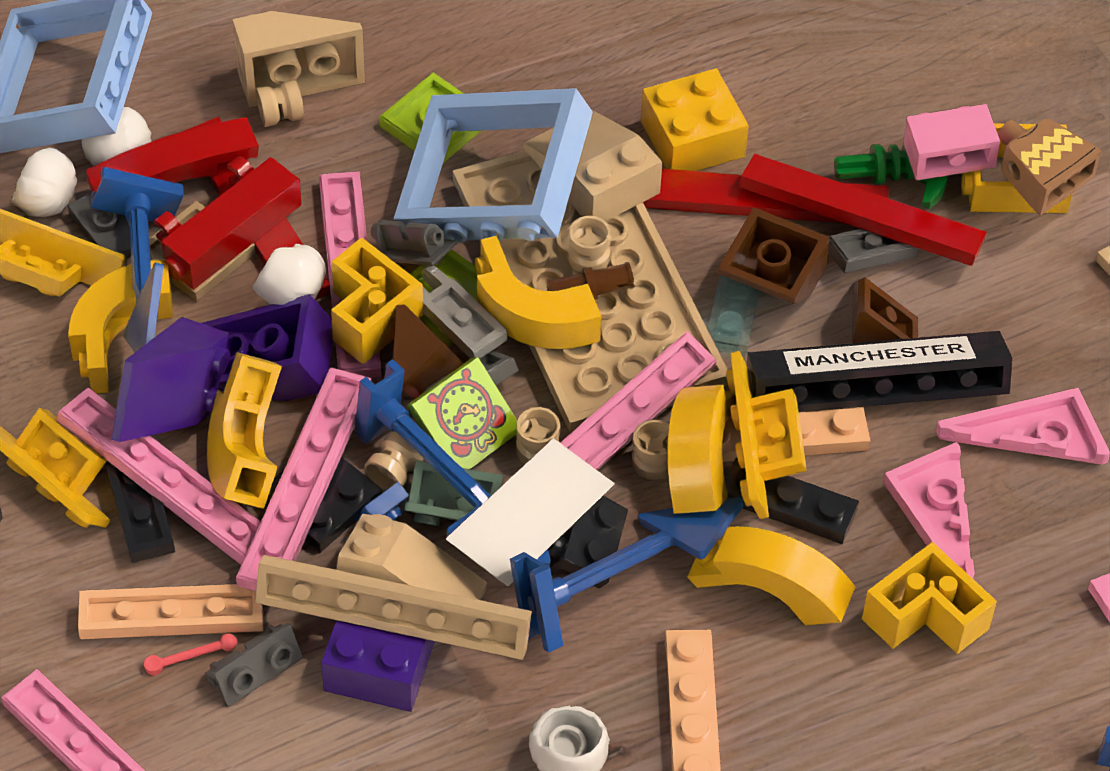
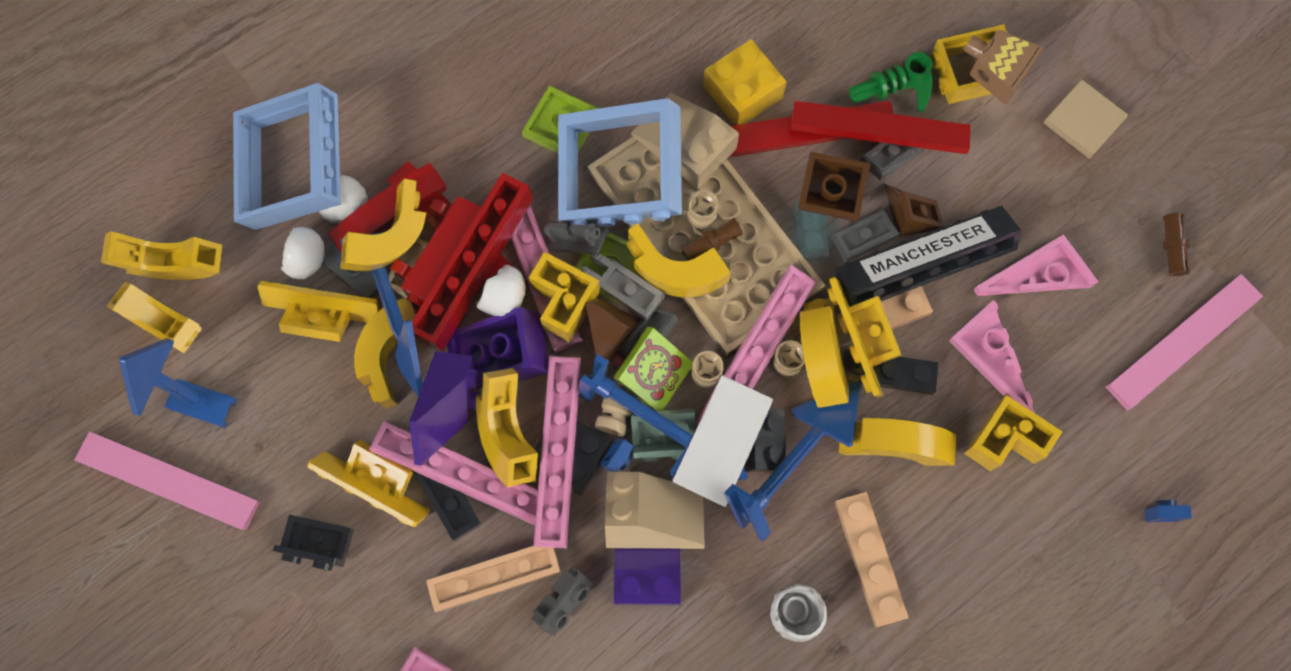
camera: 10 degrees left, 20 degrees up
(150, 189) = (373, 252): none -> yellow arch
(154, 664) = (494, 617): coral hinge -> none
(279, 103) = (449, 139): tan wheel -> none
(284, 217) = (471, 262): none -> red brick
(302, 48) = (449, 100): tan slope -> none
(393, 607) = (652, 550): tan plate -> none
(804, 329) = (864, 235): none -> dark grey plate
(951, 142) = (933, 62): bright pink brick -> none

